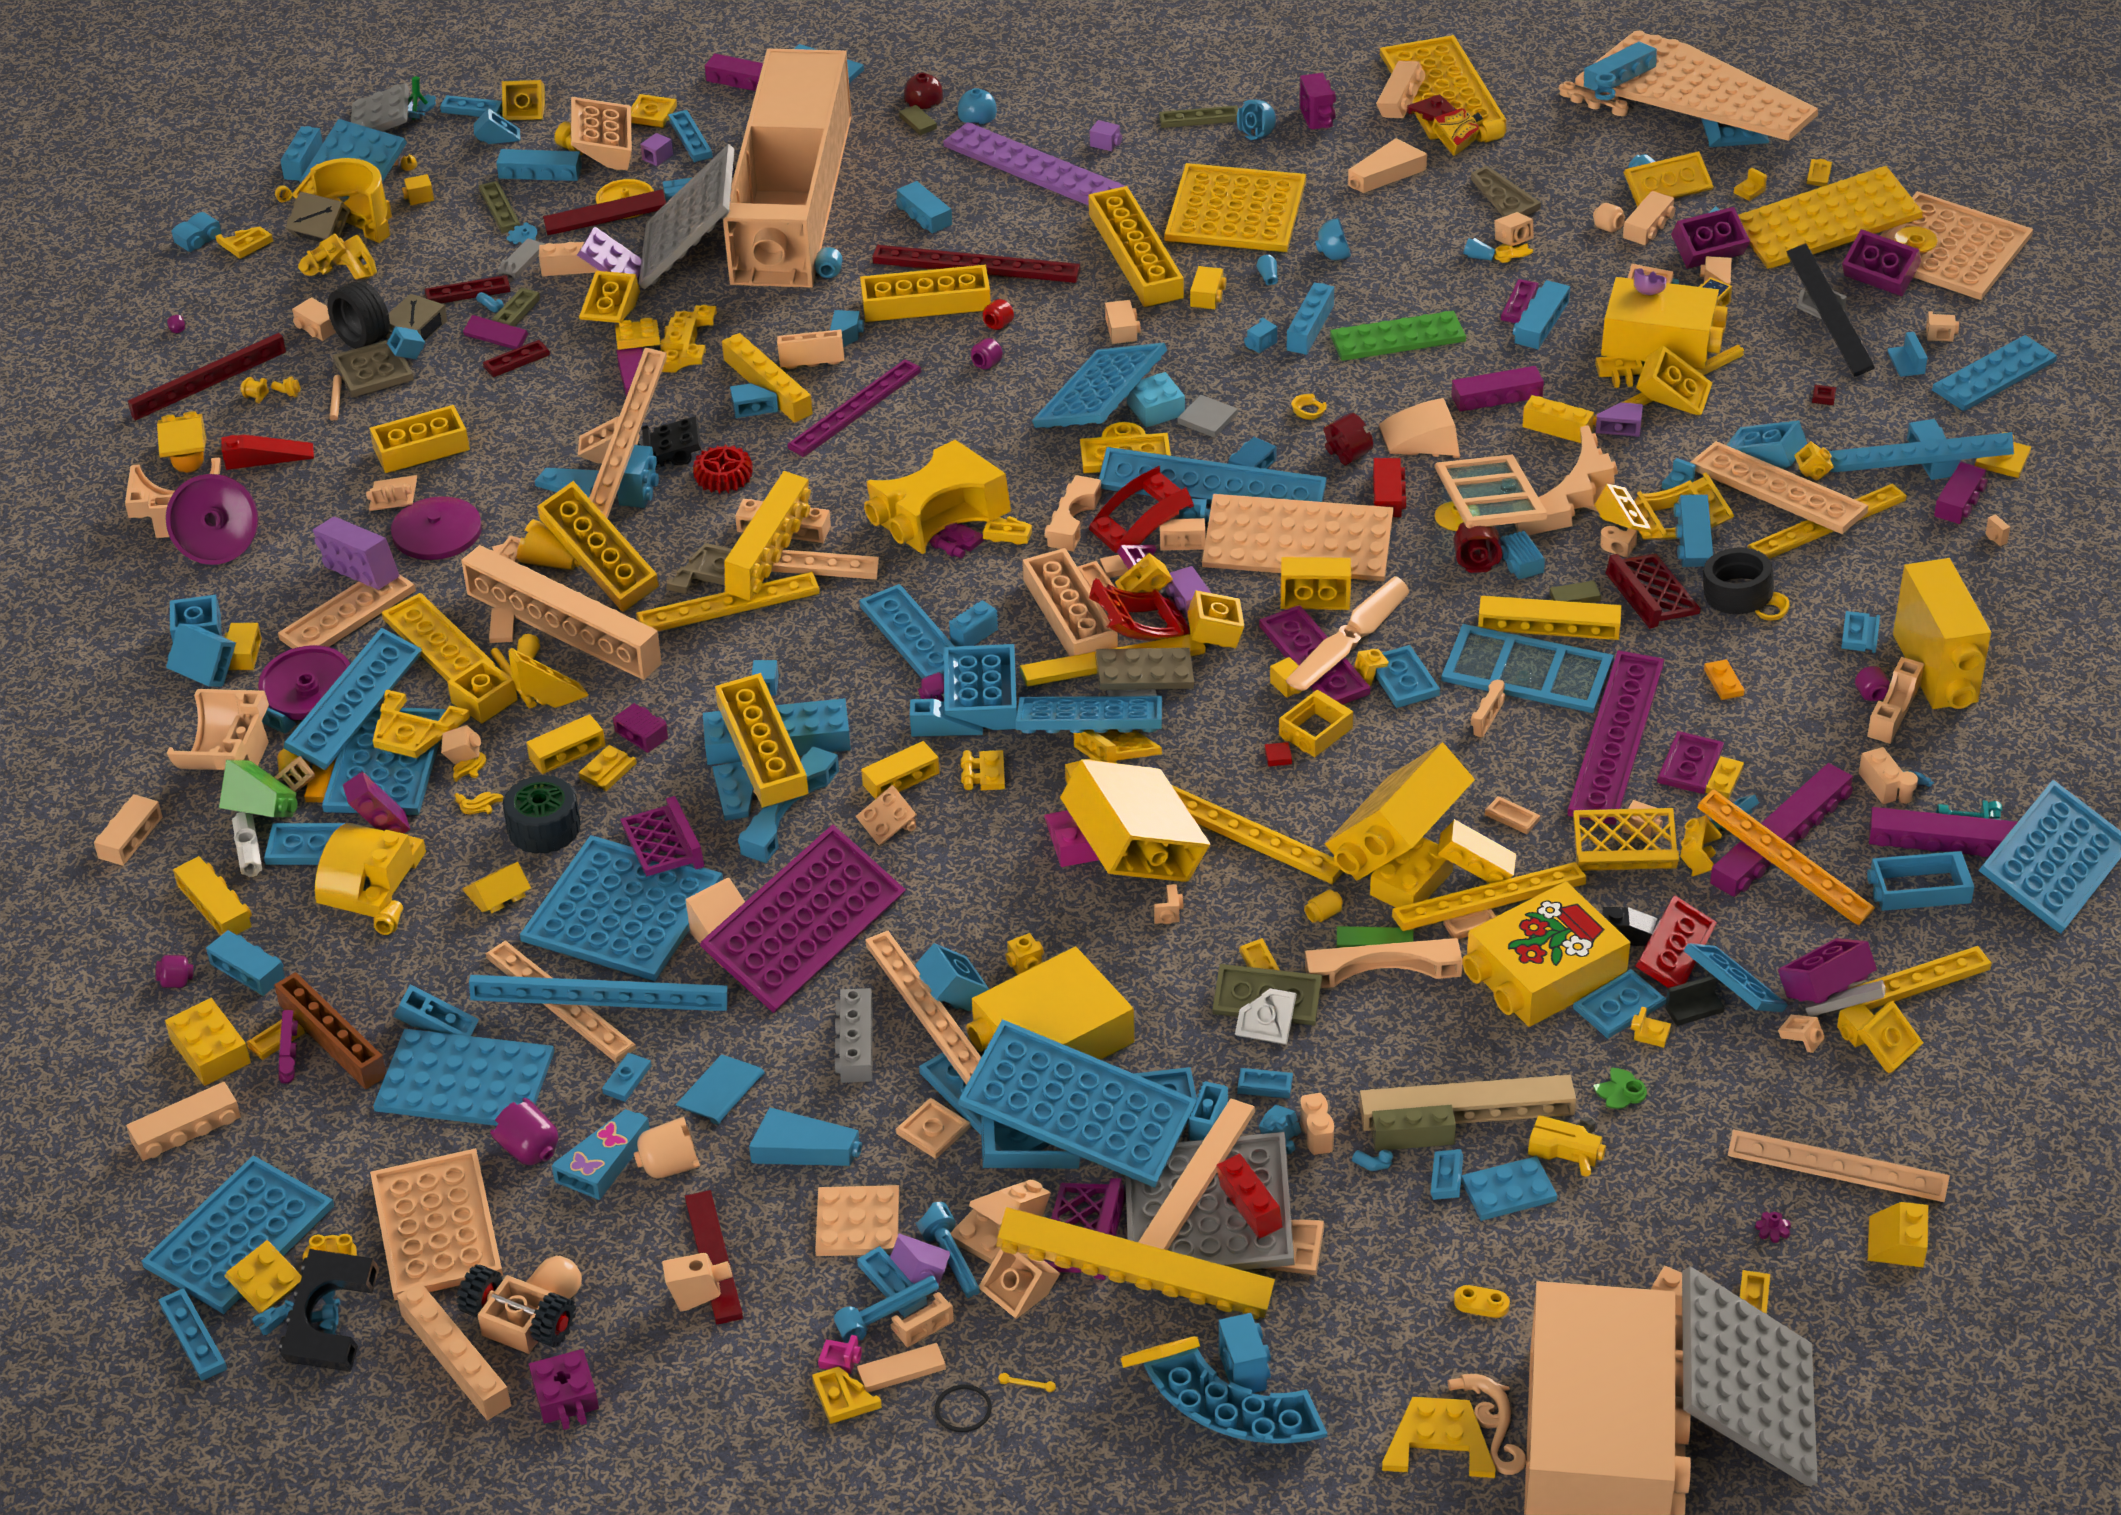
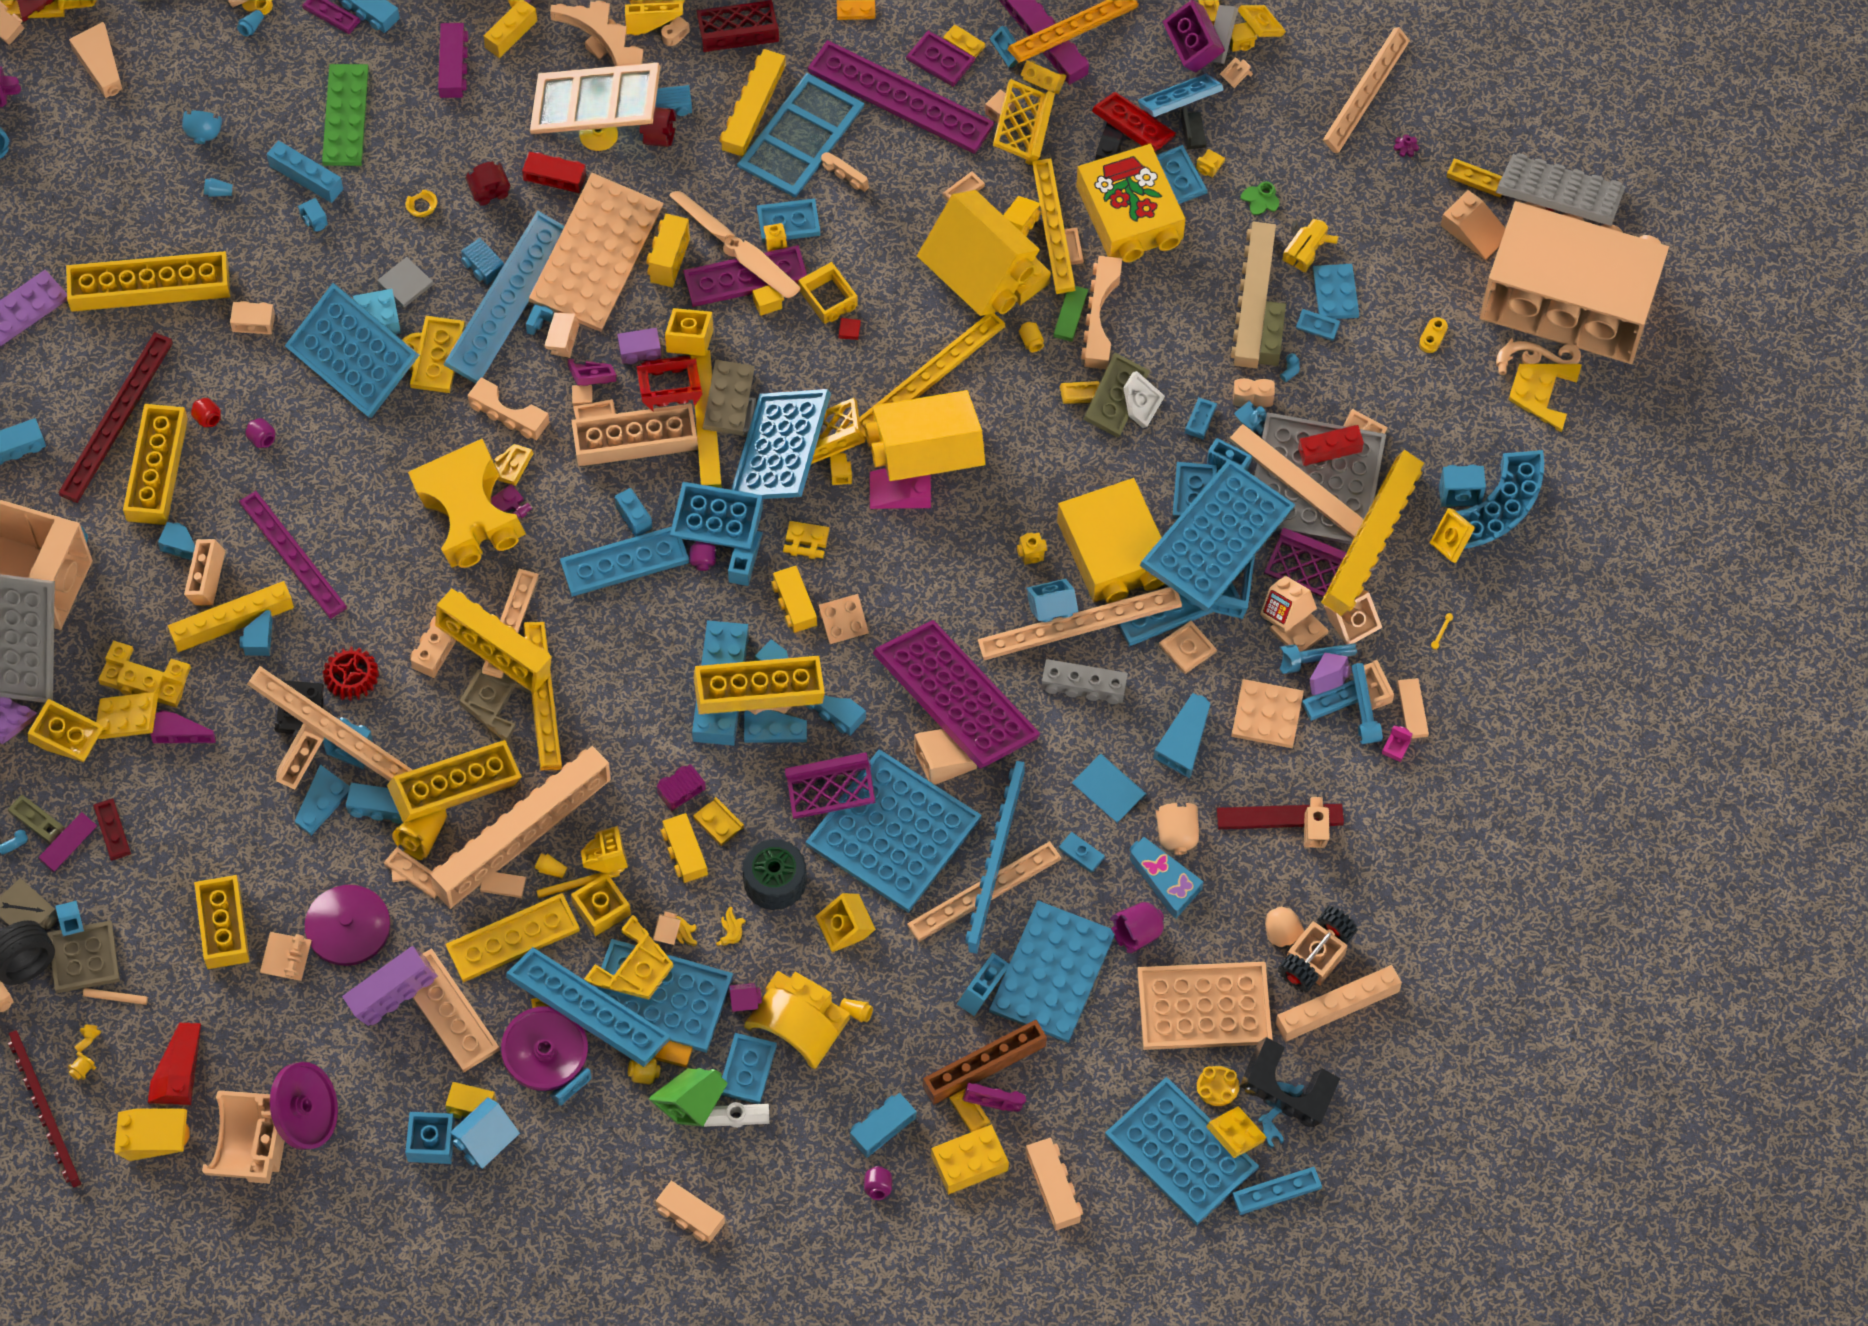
camera: 80 degrees left, 20 degrees up
(212, 896) = (796, 1146): yellow brick -> none
(226, 730) = (609, 1125): light nougat piece -> none
(298, 762) = (666, 1060): light nougat slope -> none
(564, 1387) = (1398, 920): magenta hinge -> none
(769, 672) = (646, 681): dark azure brick -> none
(842, 1395) = (1432, 749): yellow wing -> none
(963, 1429) = (1455, 659): black piece -> none
(1145, 576) = (627, 372): yellow brick -> none
(1169, 499) = (515, 333): red wedge -> none
(1169, 912) = (1003, 437): light nougat bracket -> none
(1207, 287) = (226, 238): yellow brick -> none
(1235, 207) = (111, 191): yellow plate -> none
(1421, 429) = (483, 128): light nougat wedge -> none
(1579, 592) = (725, 79): olive tile -> none
(1899, 1235) = (1436, 74): yellow slope -> none

